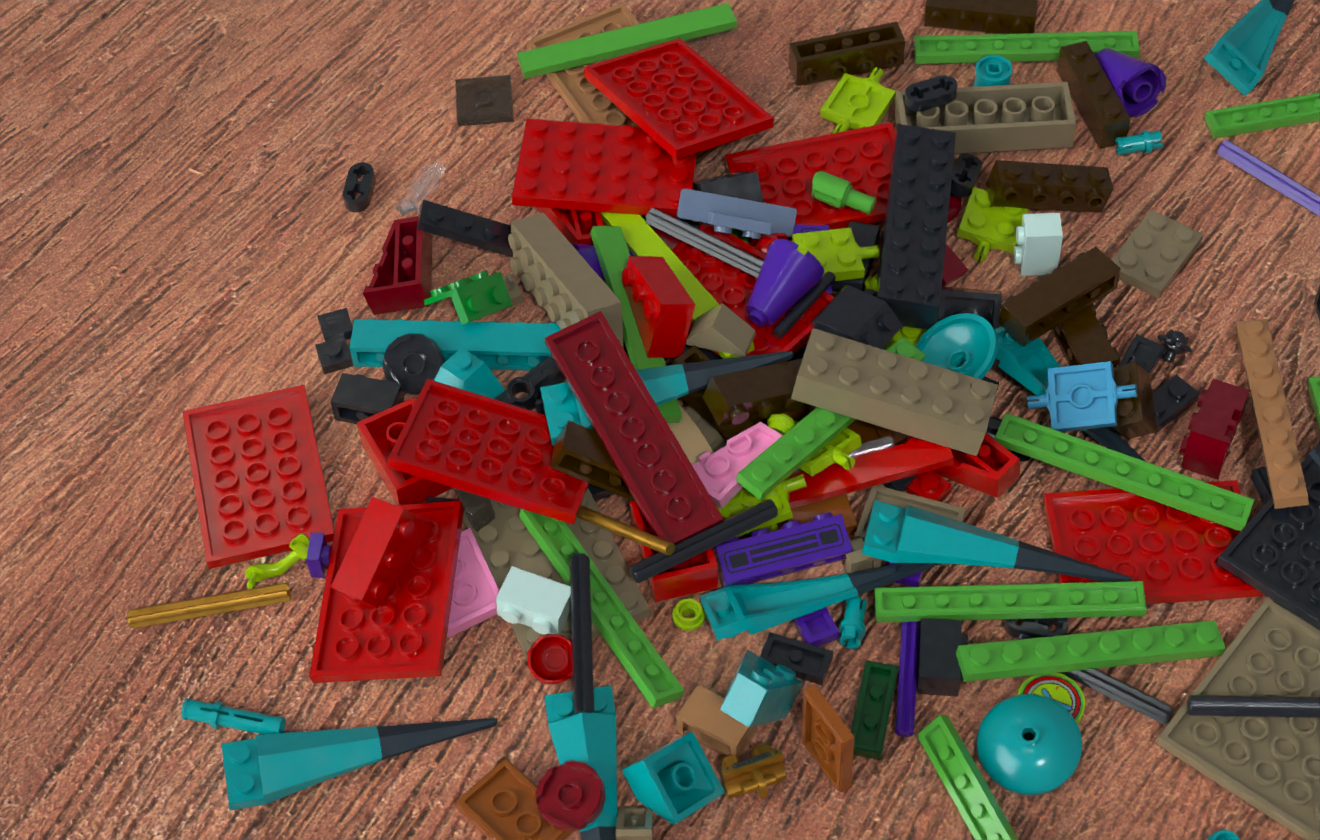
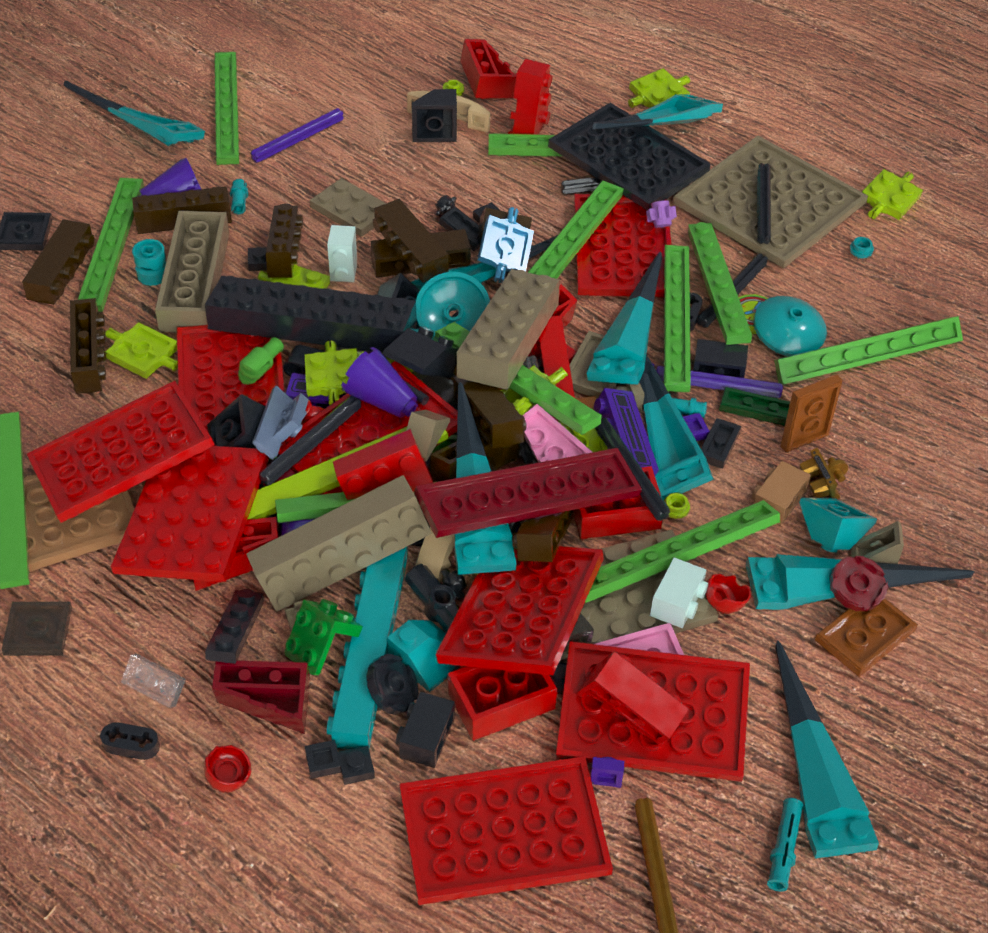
camera: 90 degrees left, 5 degrees down
(264, 571) = (613, 807): lime piece -> none
(320, 254) = (227, 768): none -> red hair
(581, 633) = (716, 556): black axle -> none
(626, 531) = (621, 513): pearl gold bar -> none
(760, 691) = (768, 449): teal wedge -> none
(931, 93) = (170, 285): black beam -> none
(1200, 571) = (661, 214): none -> medium lavender gear
(1213, 428) = (532, 195): dark red wedge -> none
(1271, 415) = (522, 164): medium nougat plate -> none

